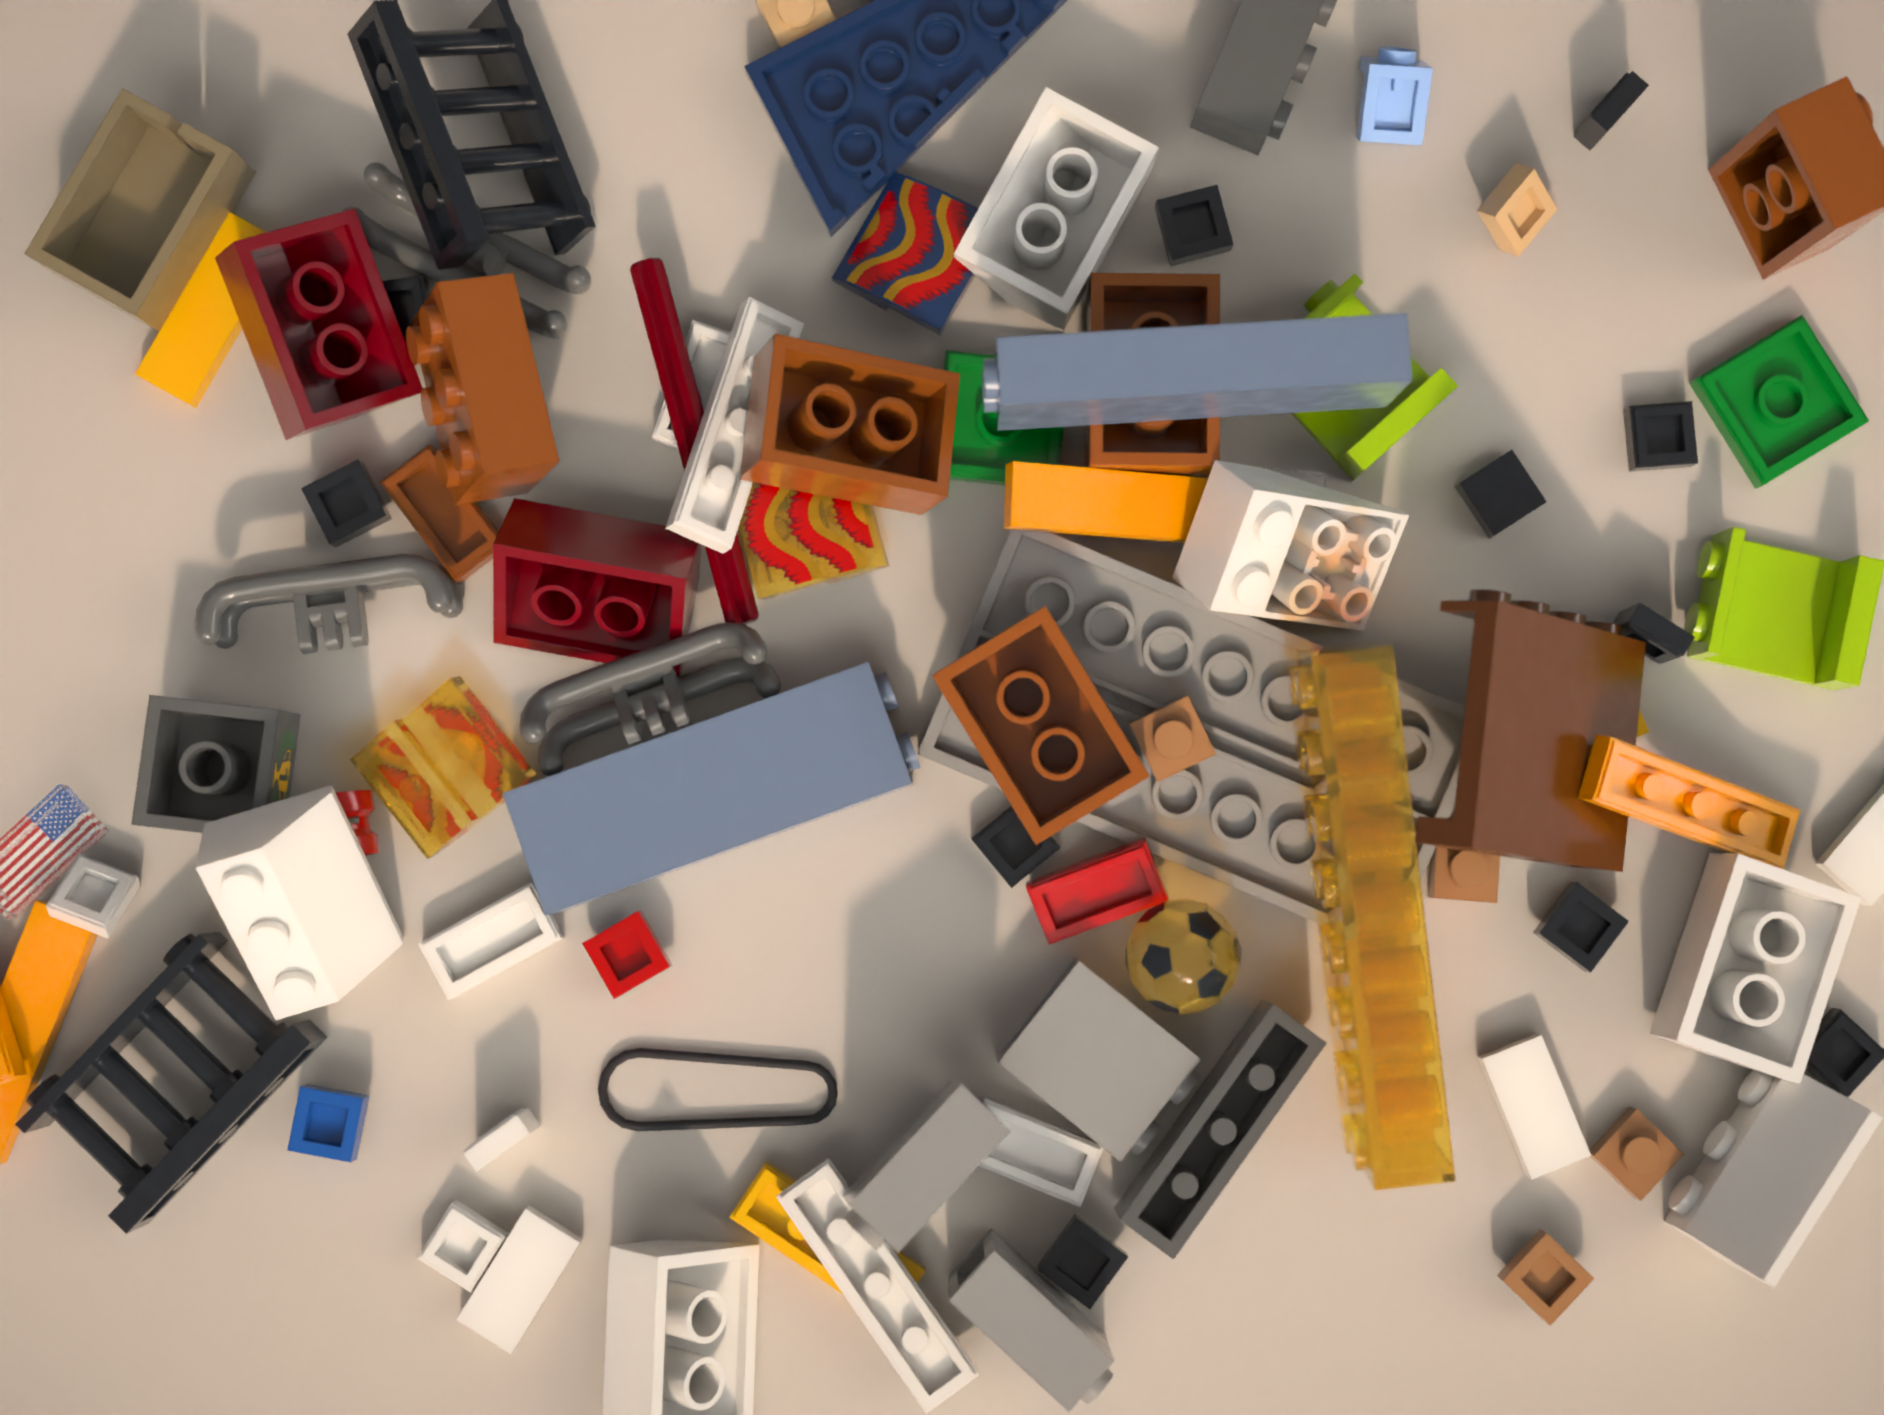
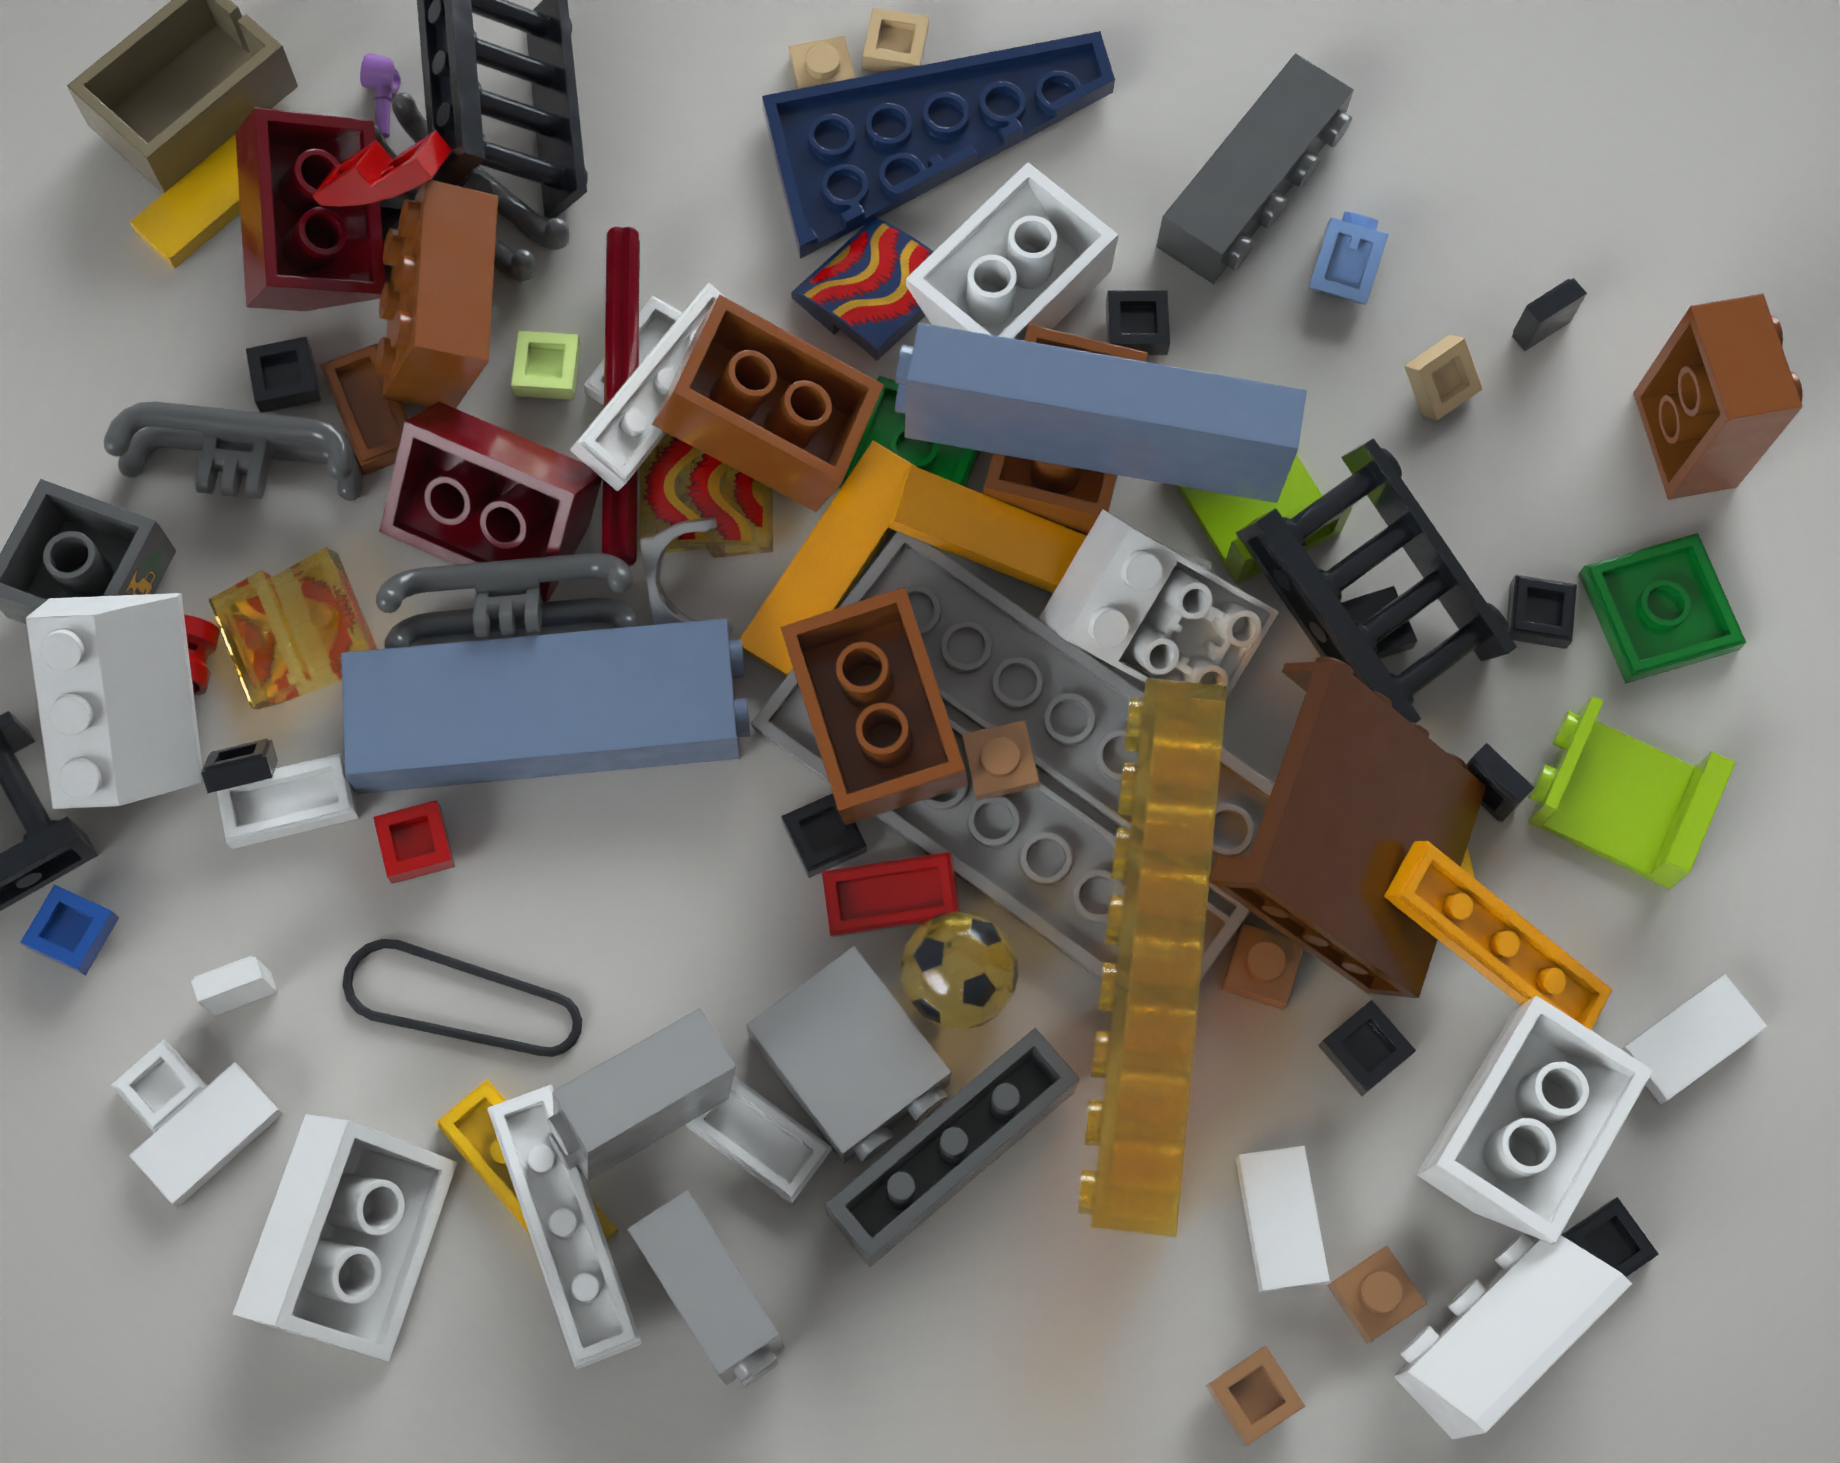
camera: 10 degrees right, 15 degrees down
(343, 139) = (381, 75): none -> medium lavender hand
(383, 286) = (375, 176): none -> red slope
(437, 923) = (239, 765): none -> black tile
(608, 425) = (546, 365): none -> yellowish green plate
(800, 657) = (653, 551): none -> light grey cap
(950, 564) = (830, 556): none -> light orange tile
(1082, 1261) = (779, 1257): black plate -> none
(1443, 491) = (1316, 594): none -> black fence

